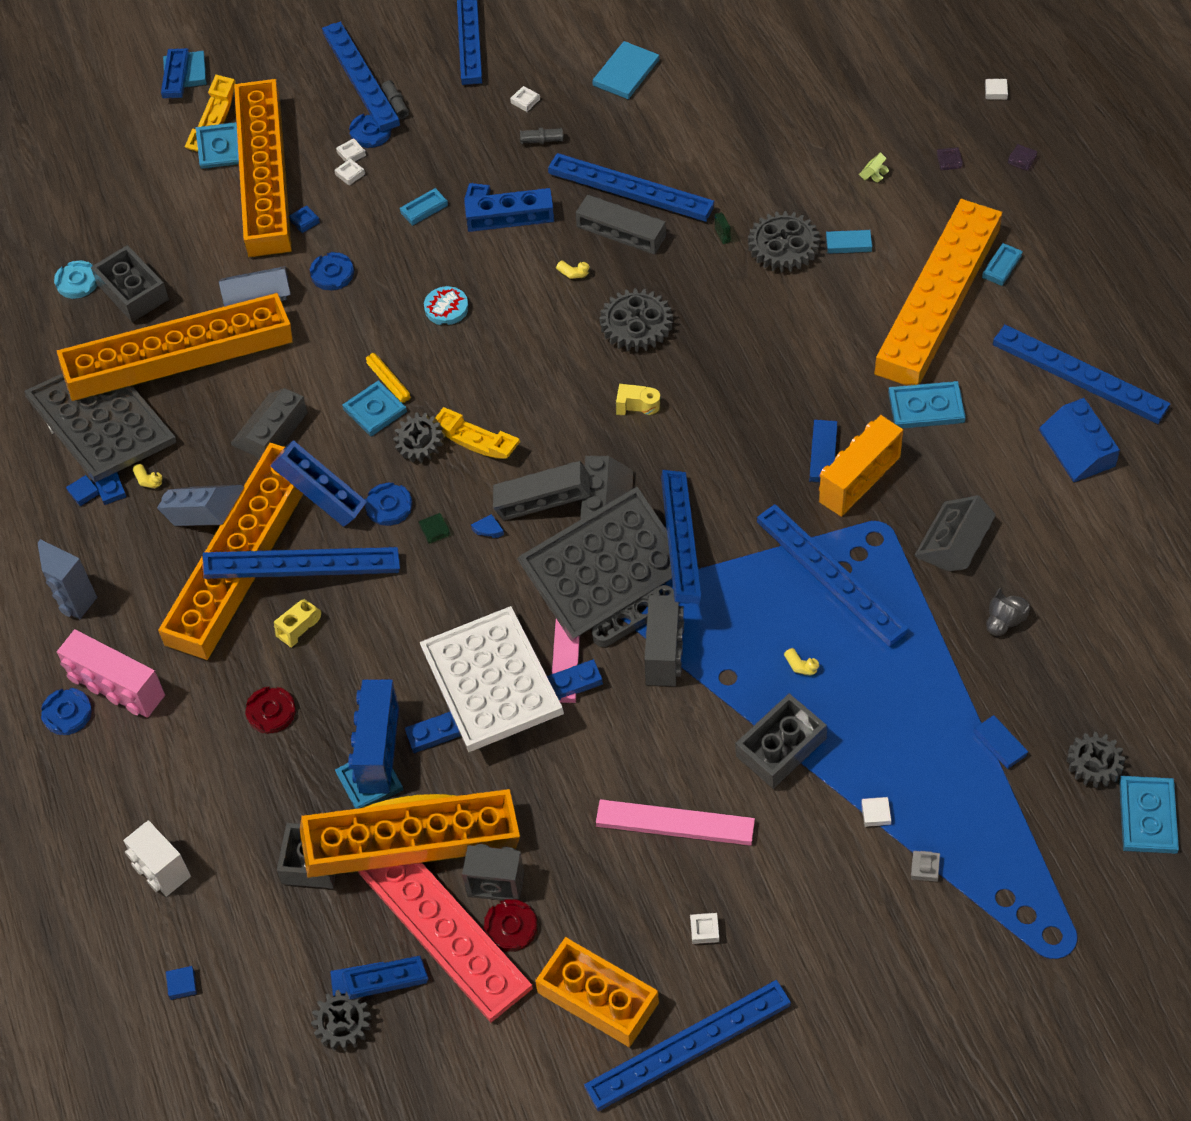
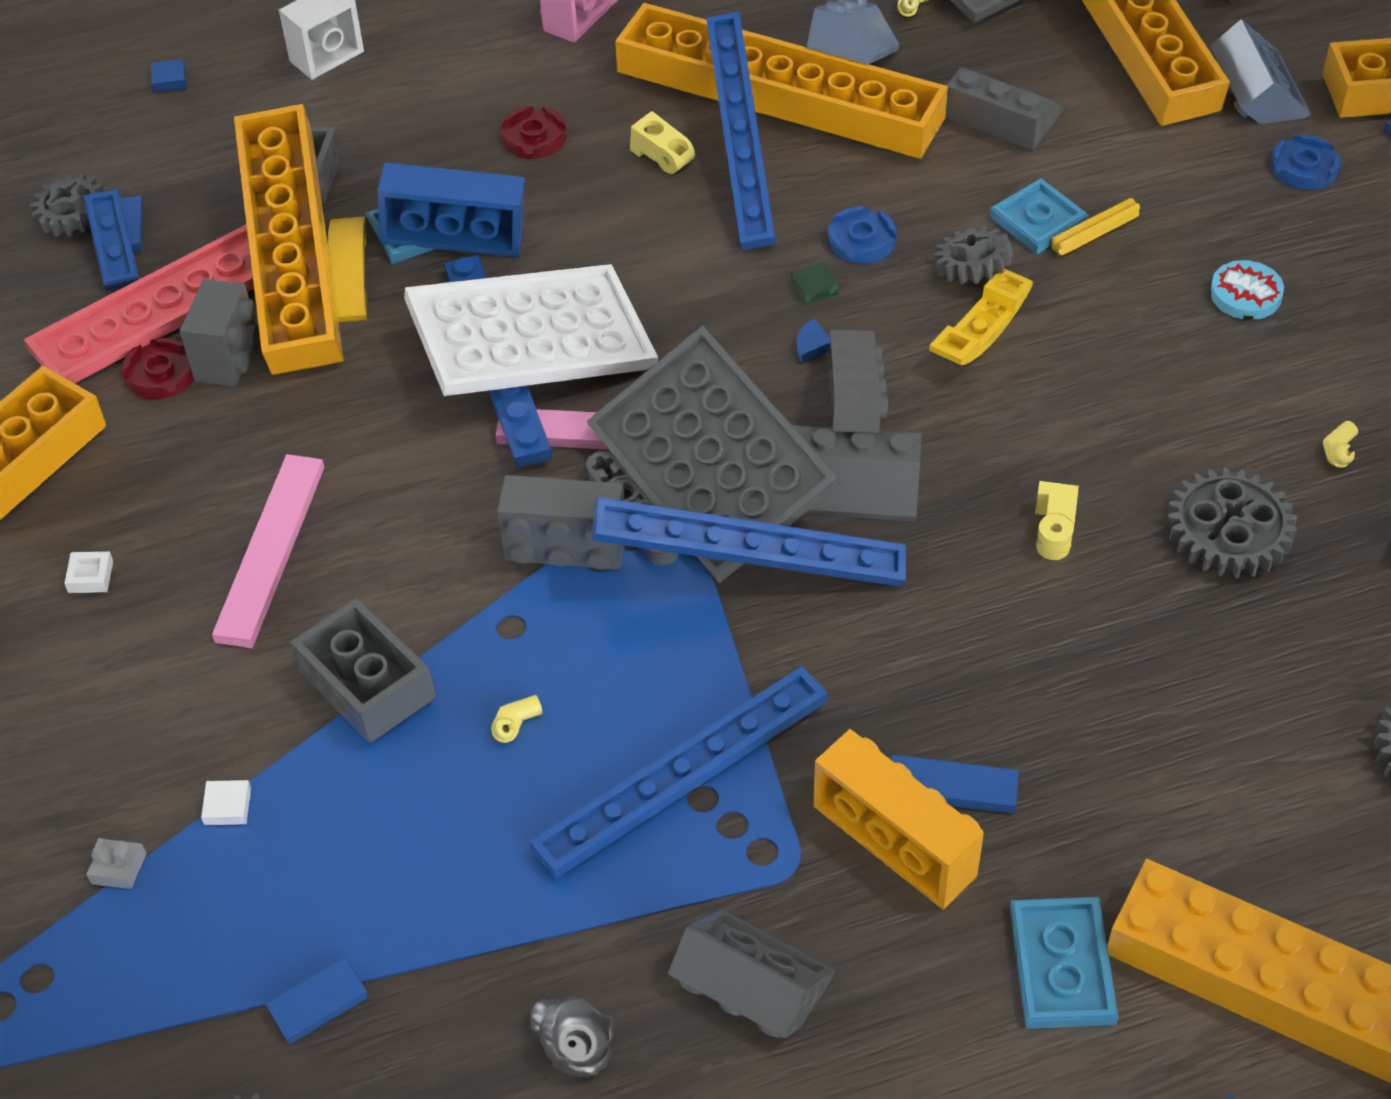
camera: 90 degrees right, 5 degrees down
(318, 483) = (866, 130): blue brick -> none

